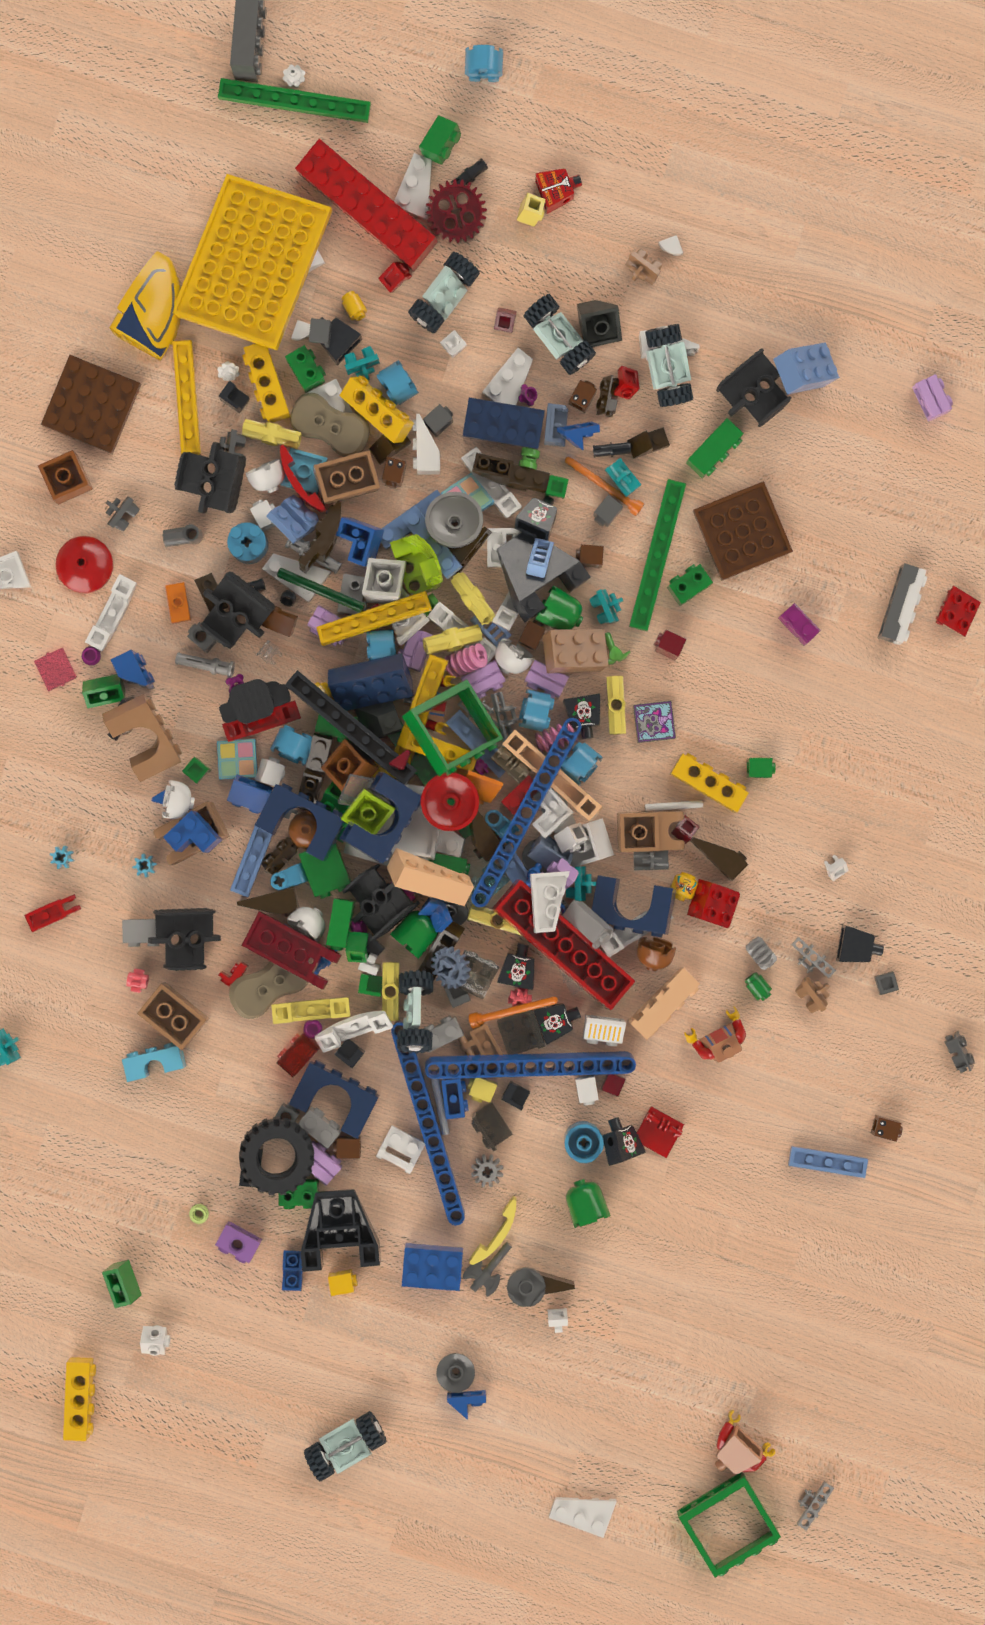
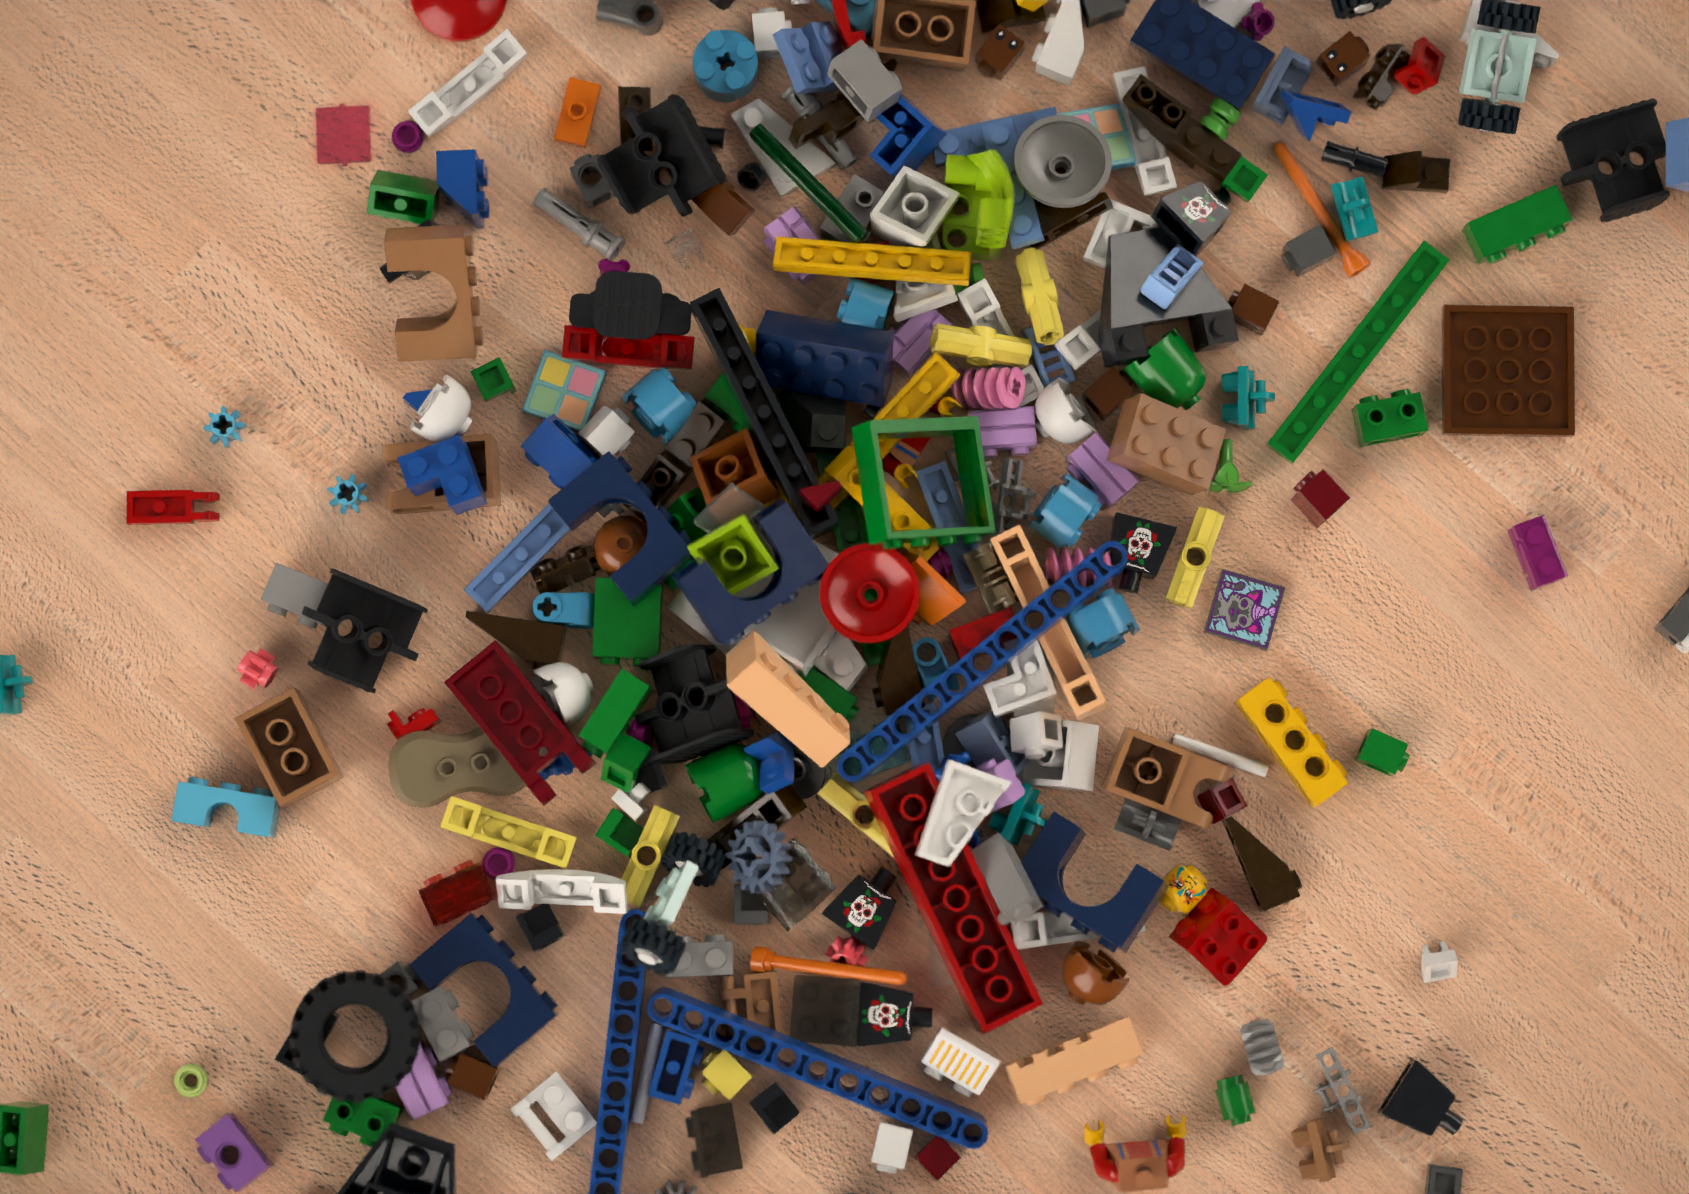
camera: 25 degrees right, 5 degrees down
(327, 520) = (865, 80): none -> light grey brick

